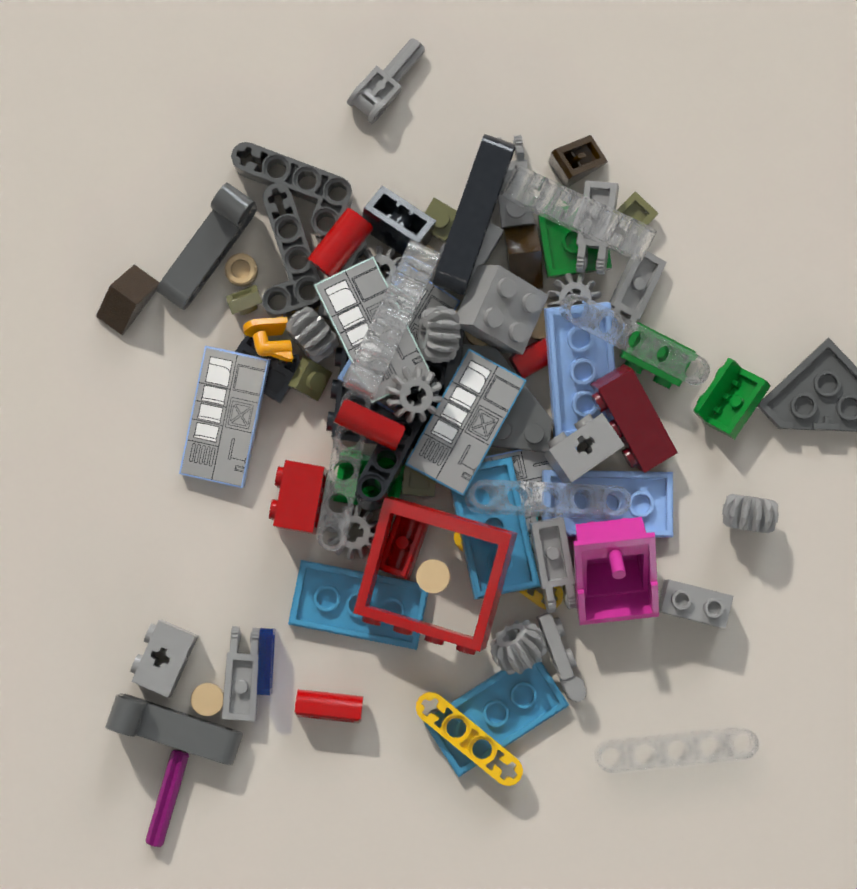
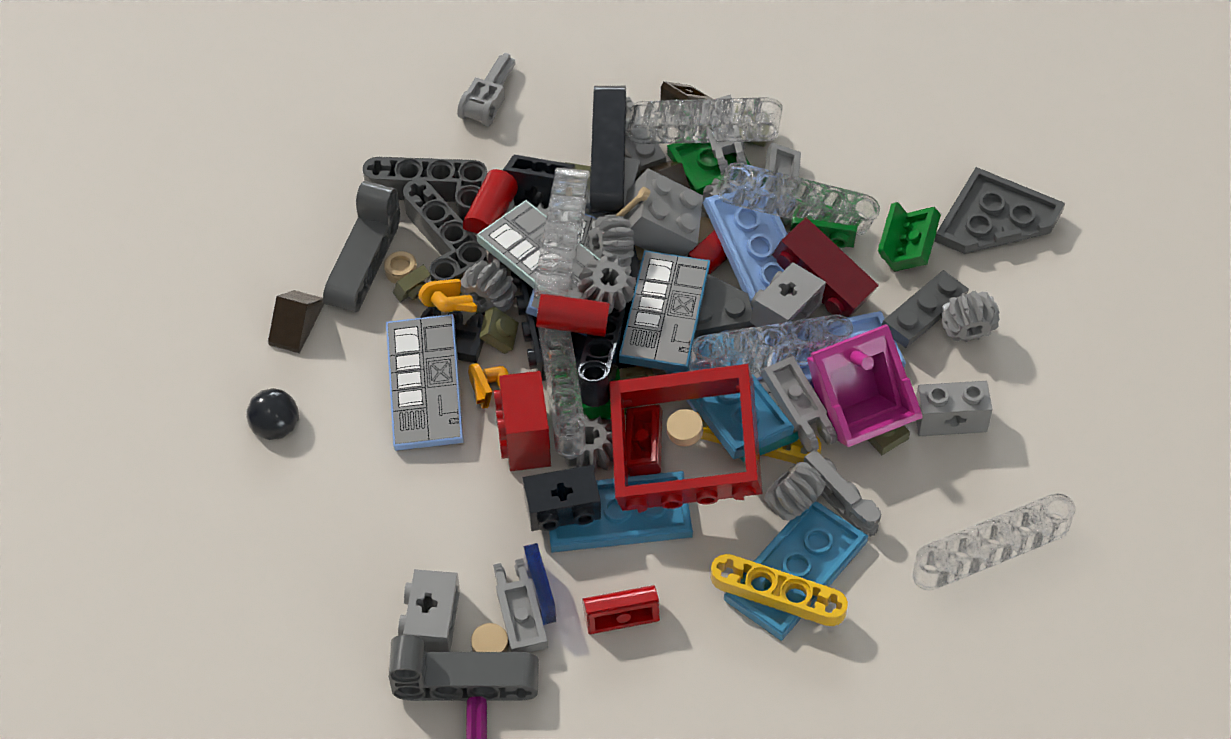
camera: 15 degrees left, 30 degrees down
(79, 401) = (272, 414): none -> black hair
(291, 579) = (562, 498): none -> black brick
(298, 424) = (481, 379): none -> light orange piece
(482, 301) = (643, 195): none -> tan hinge
(714, 483) = (923, 308): none -> dark grey plate

